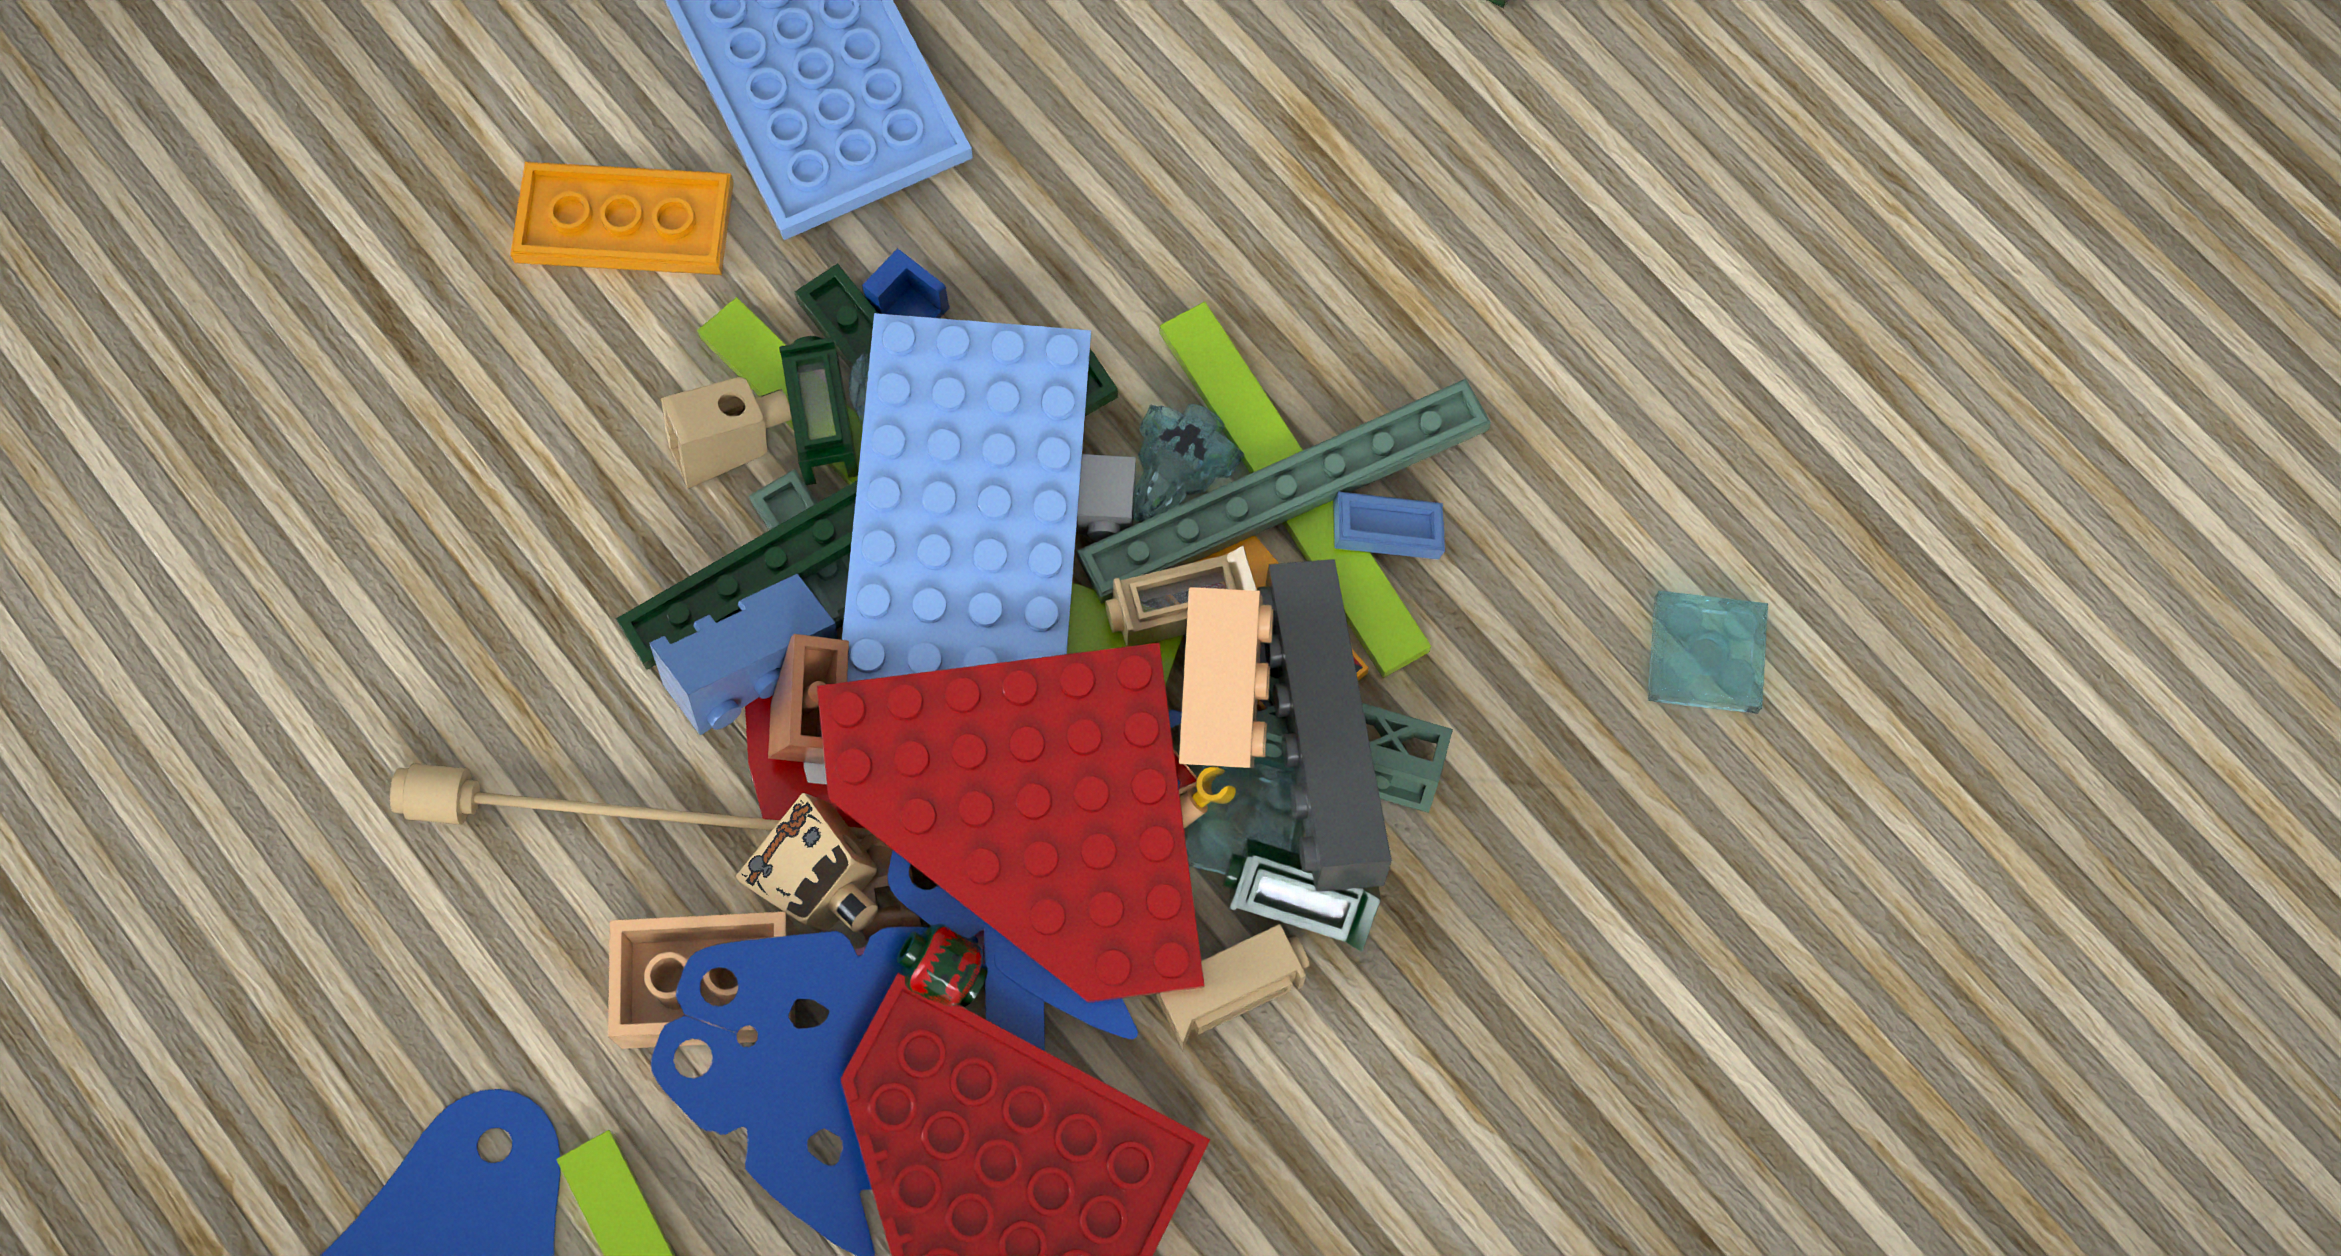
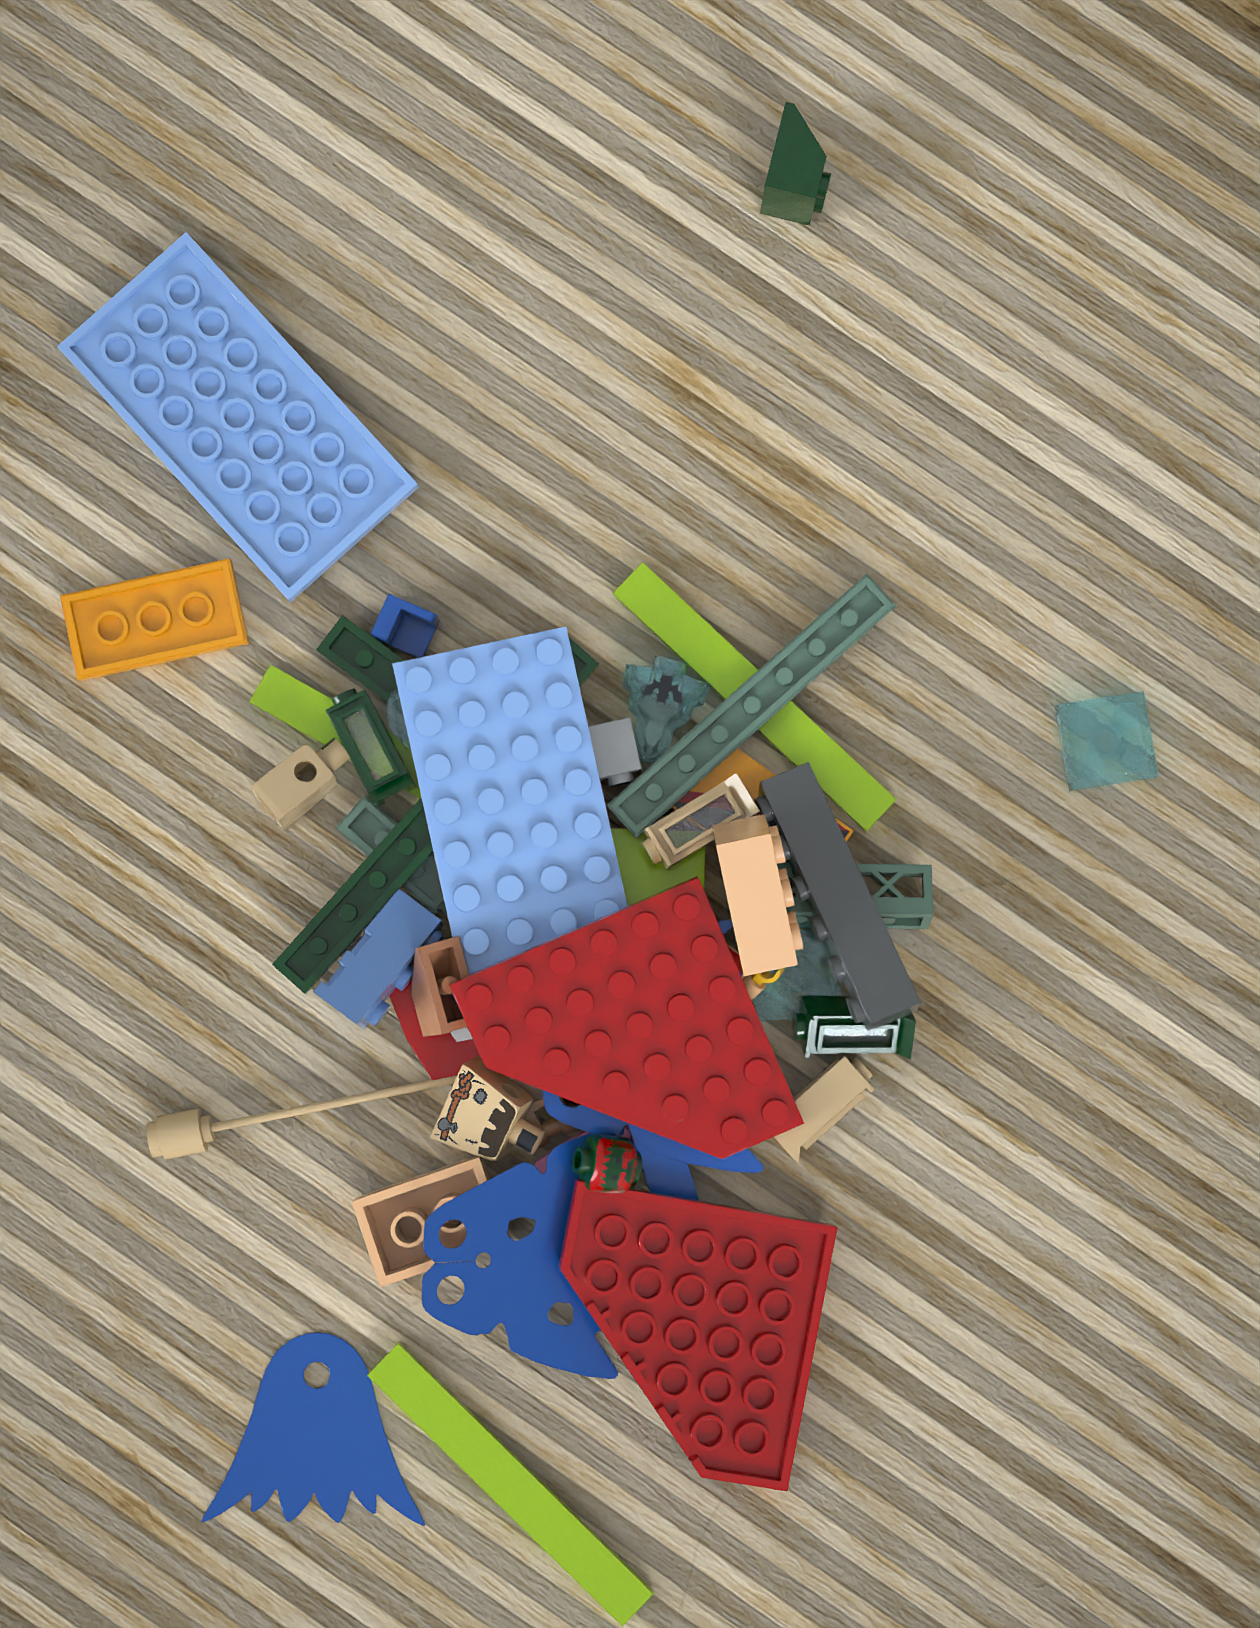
camera: 15 degrees left, 15 degrees up
(1388, 525) = (838, 711): medium blue tile -> none

